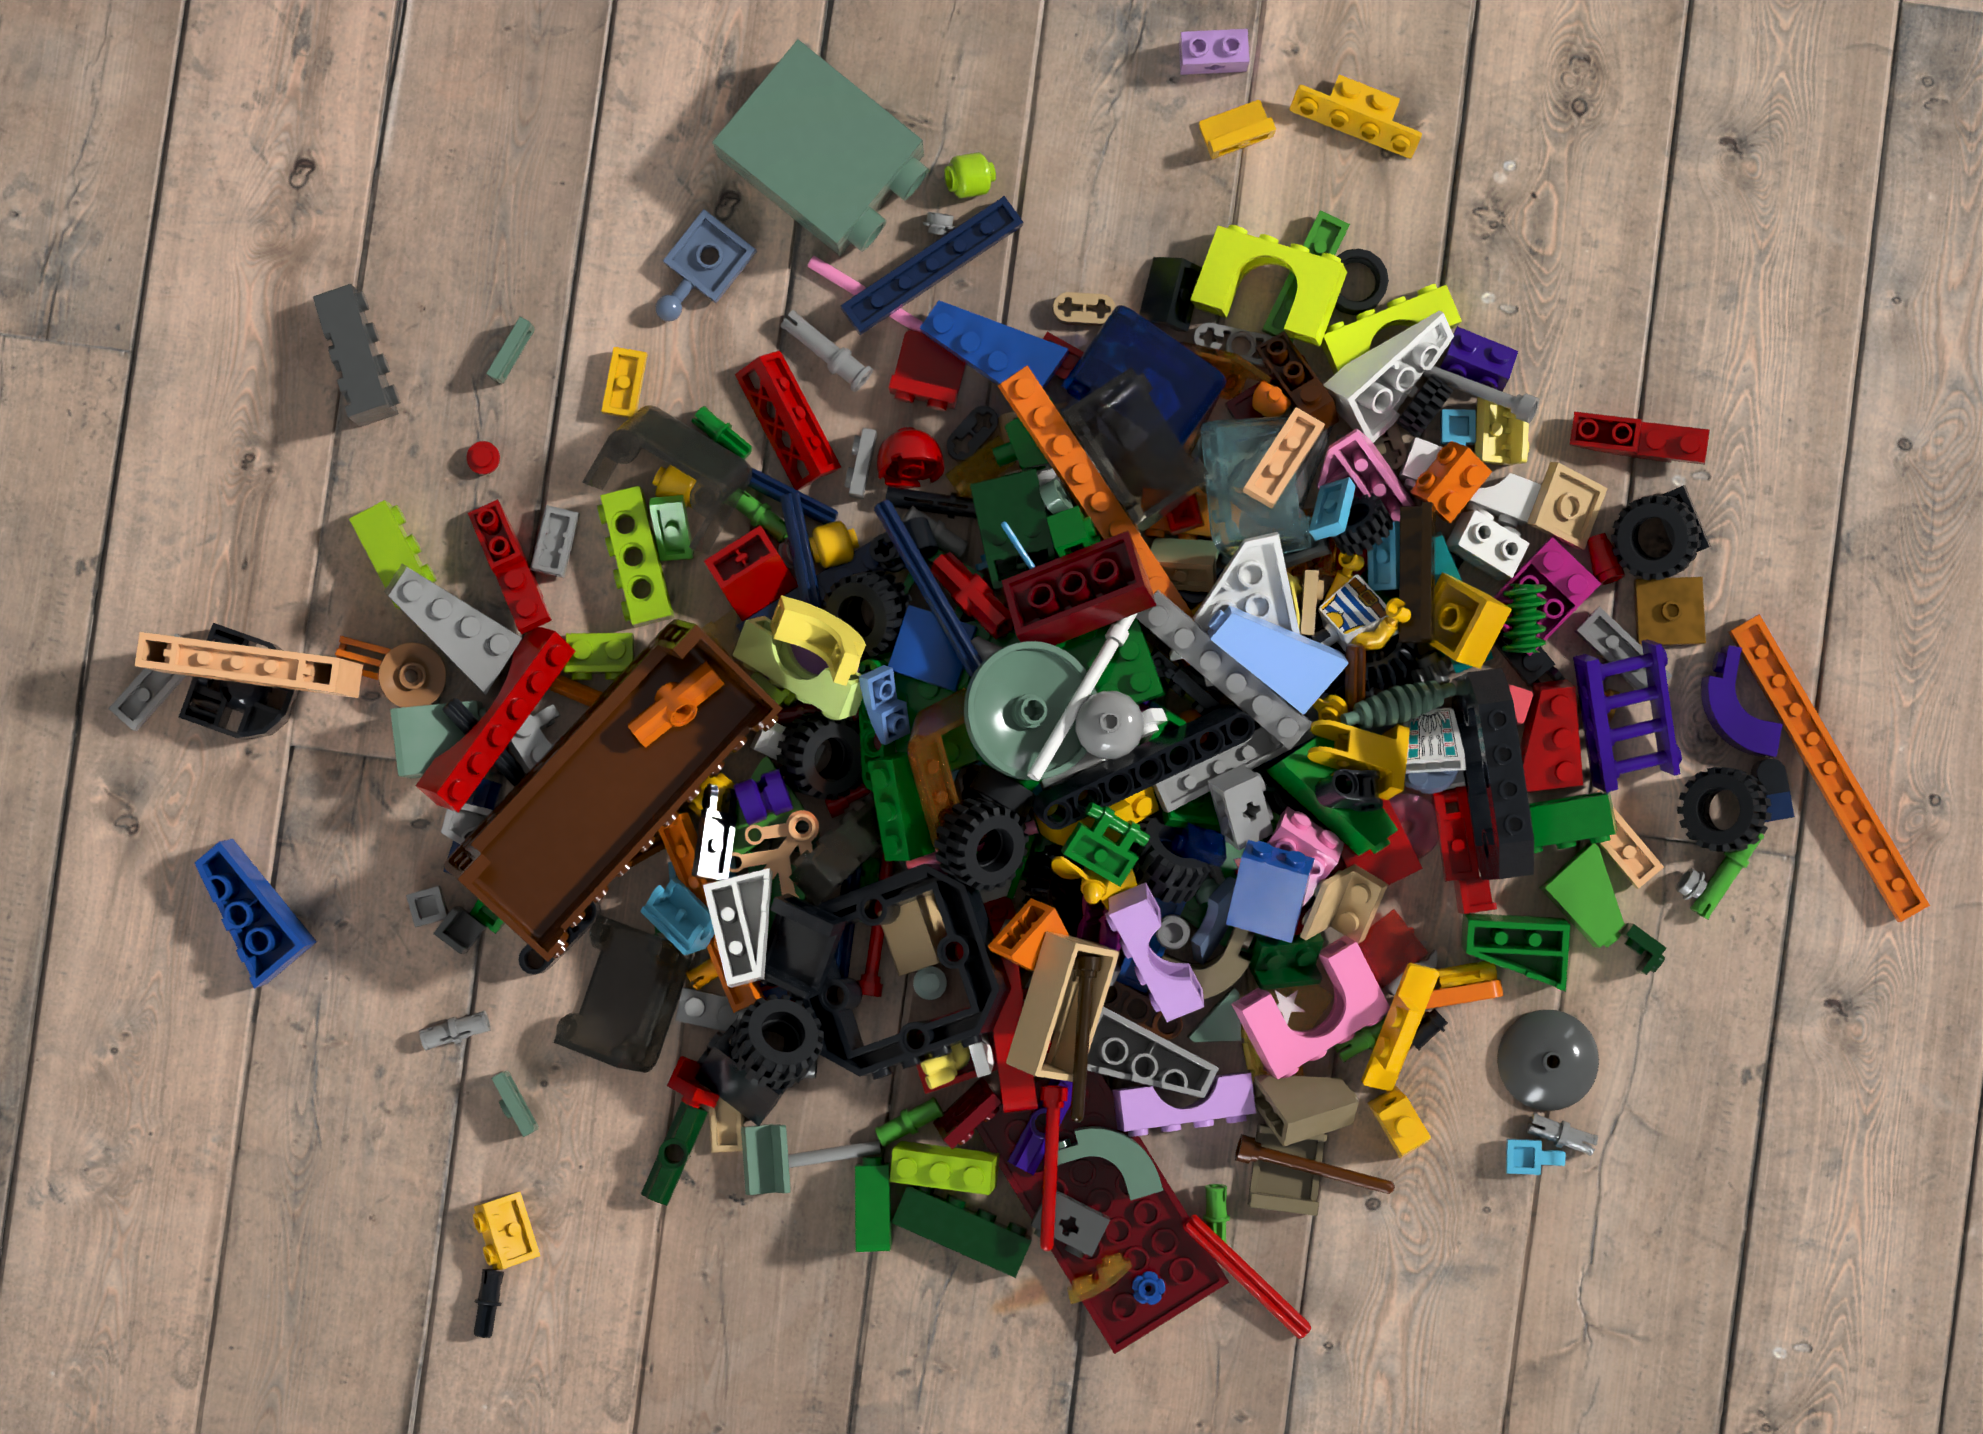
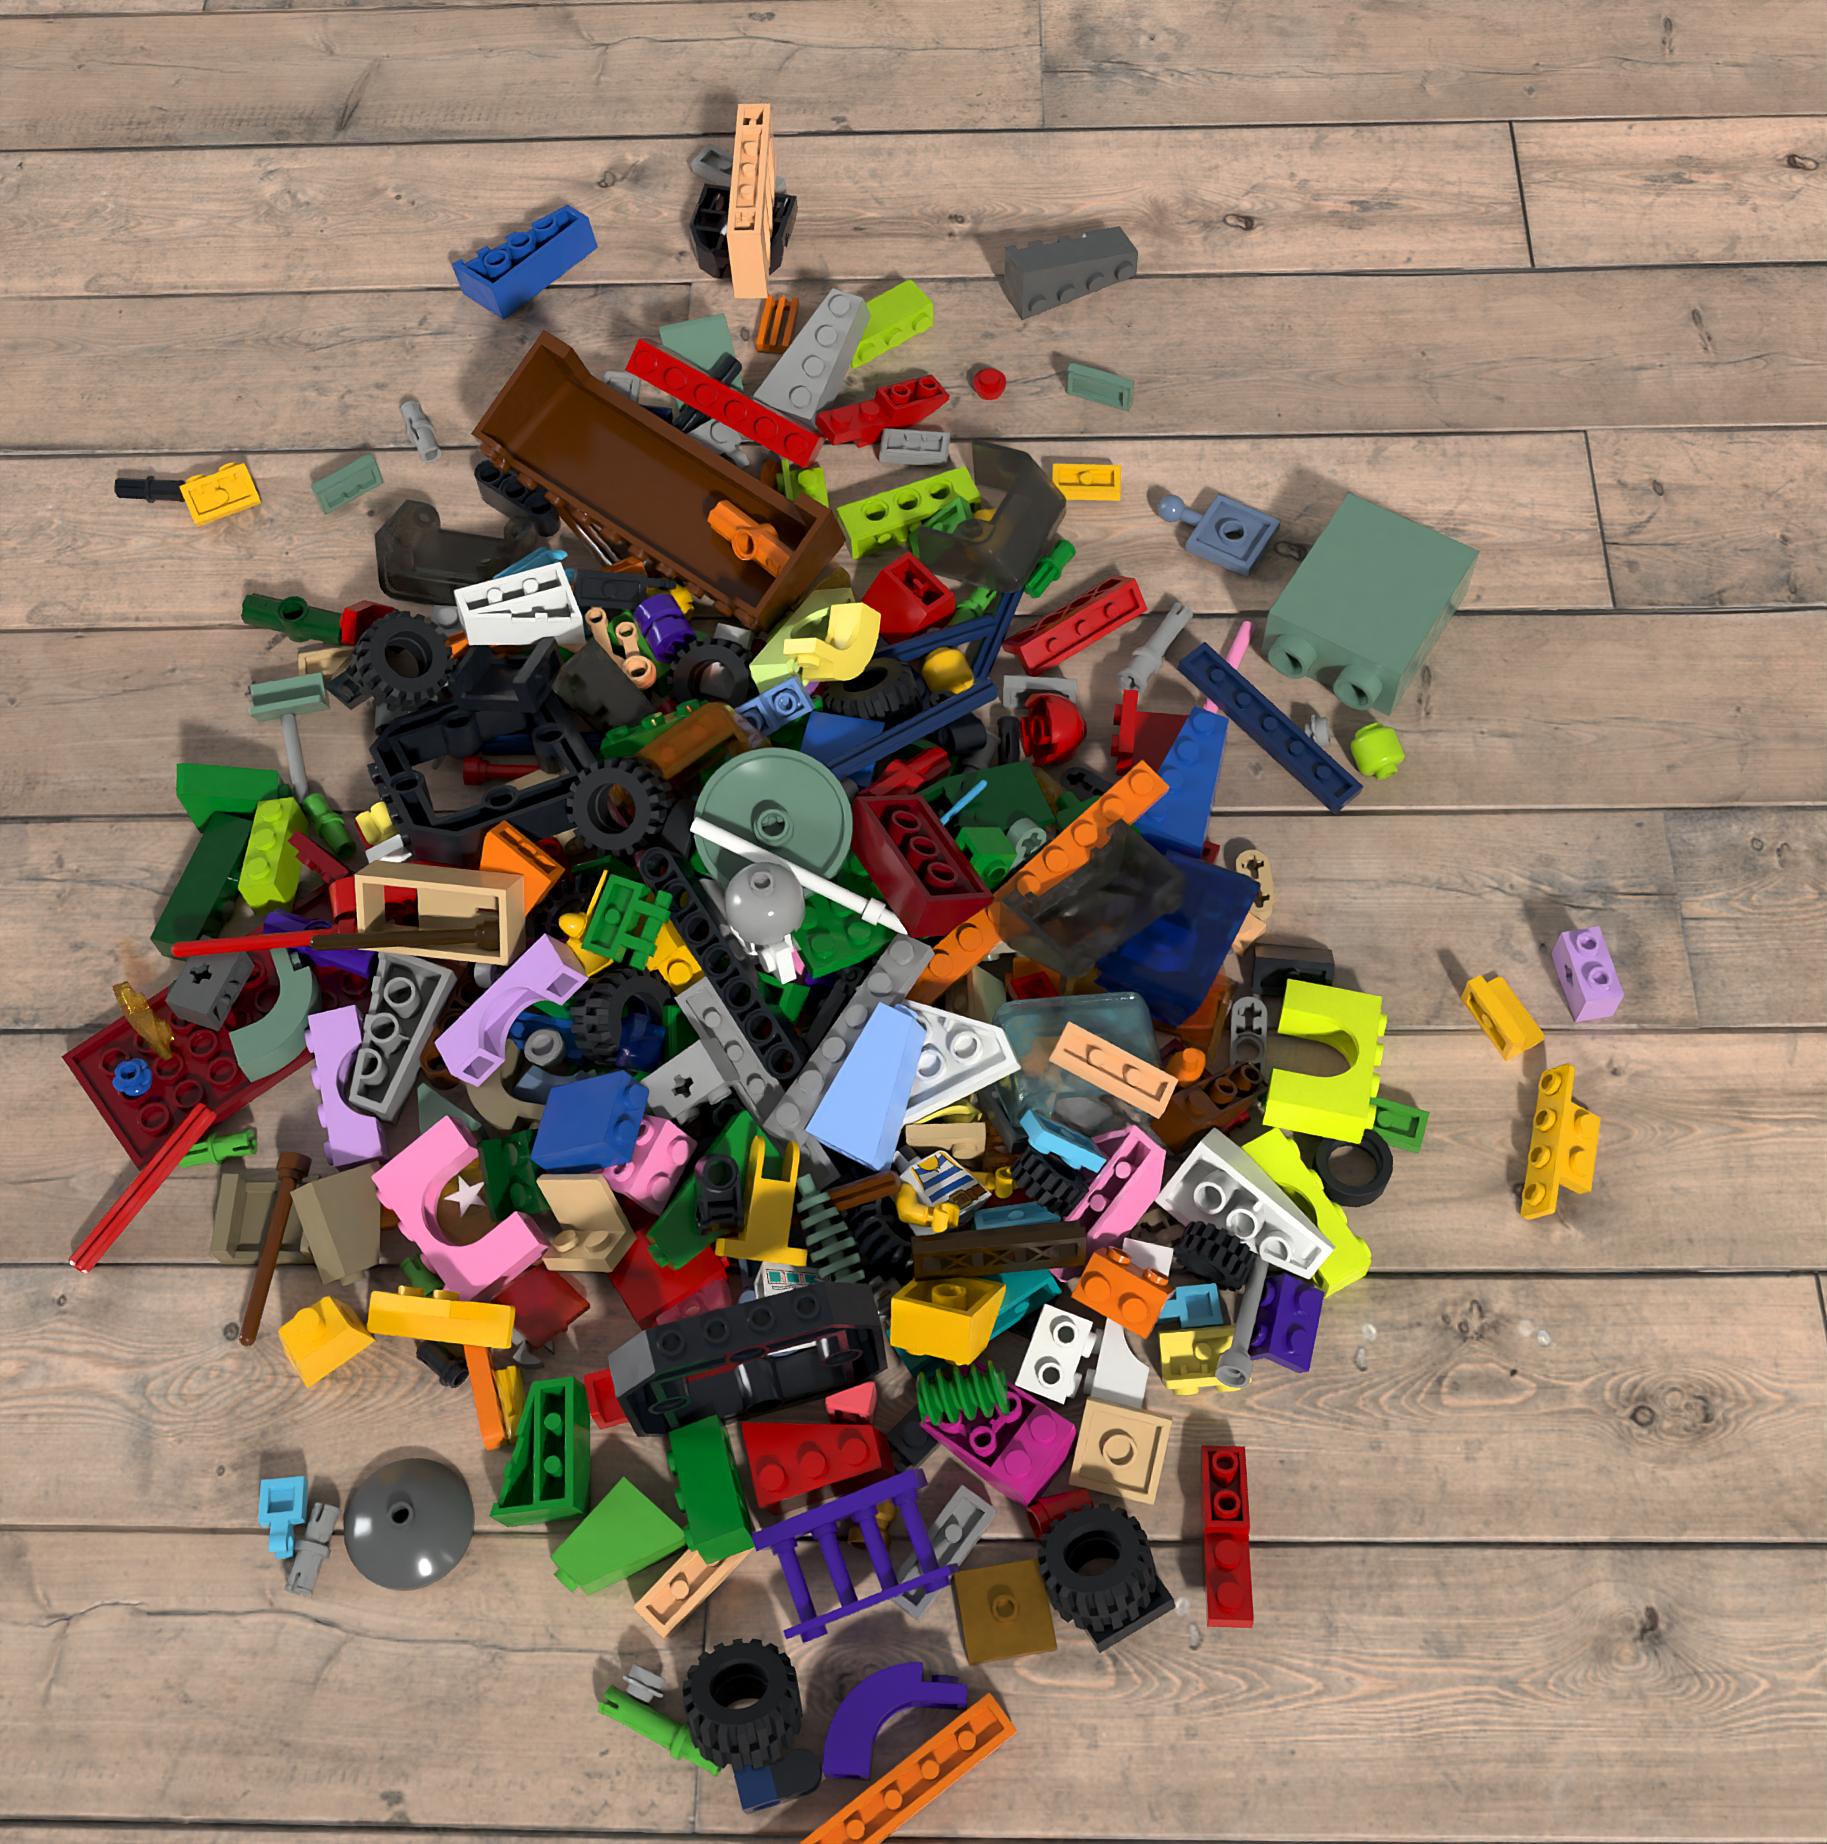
camera: 85 degrees right, 25 degrees down
(429, 671) = (757, 339): medium nougat dish -> none
(1330, 708) = (820, 1170): yellow plate -> none
(1642, 942) = (562, 1624): dark green bracket -> none

